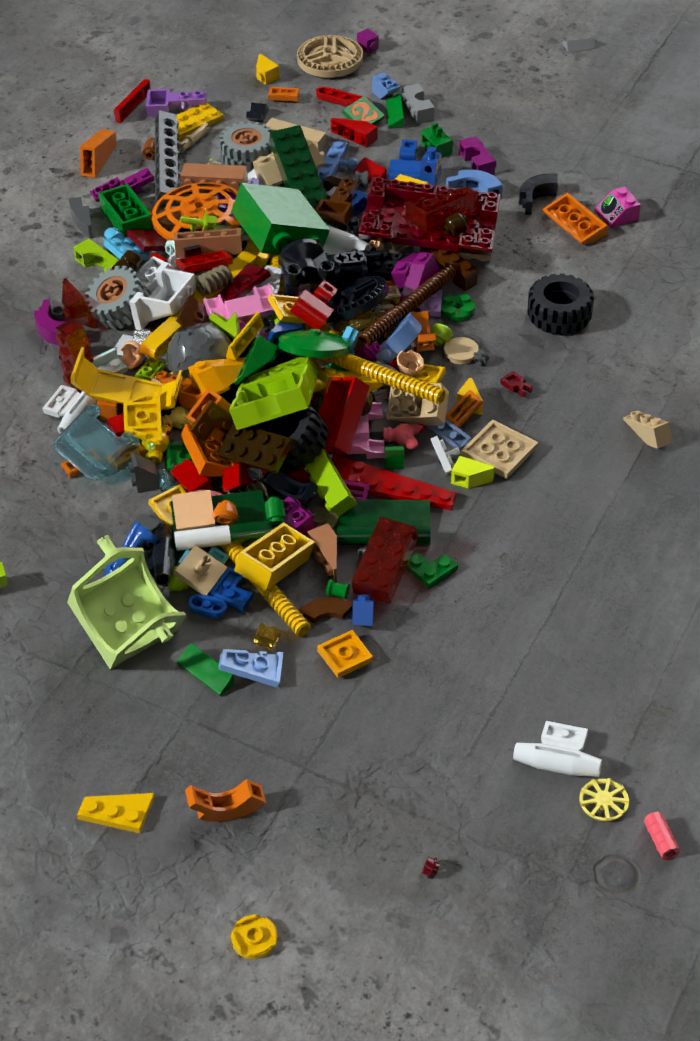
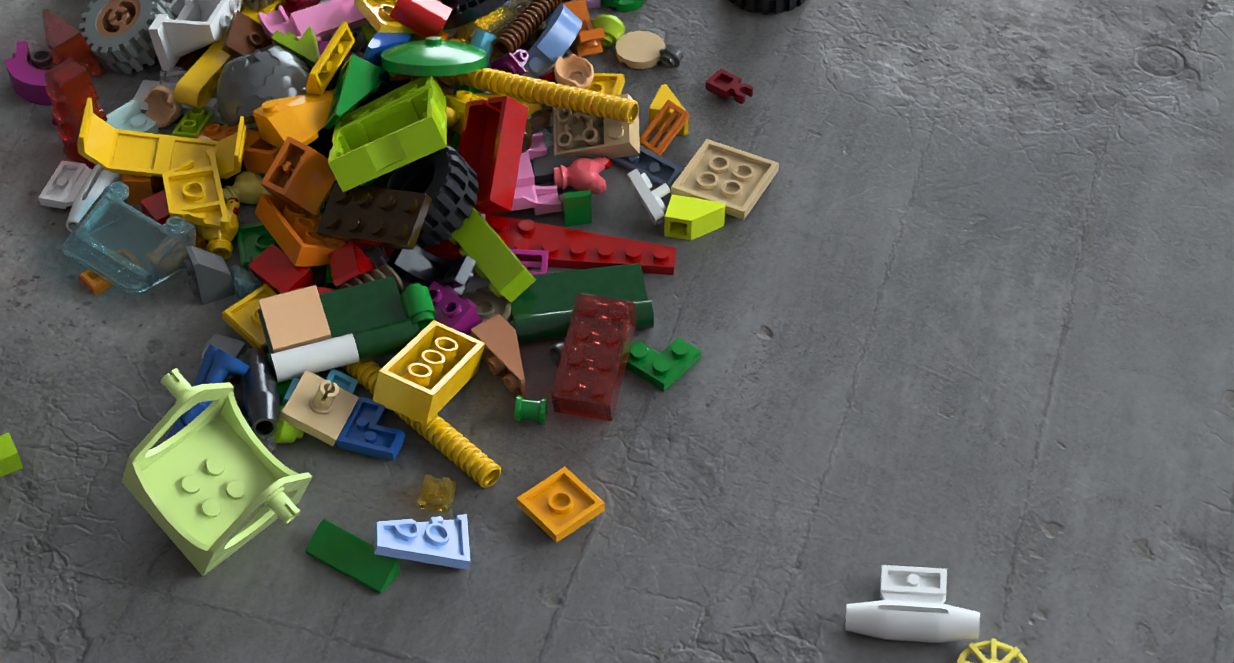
camera: 10 degrees left, 0 degrees up
(209, 418) = (299, 179): reddish brown plate -> none
(209, 606) = (340, 458): blue plate -> none
(225, 513) = (345, 316): orange cone -> none
(326, 608) = (519, 439): reddish brown tile -> none
(363, 610) = (576, 435): blue slope -> none
(650, 429) = (931, 127): tan slope -> none

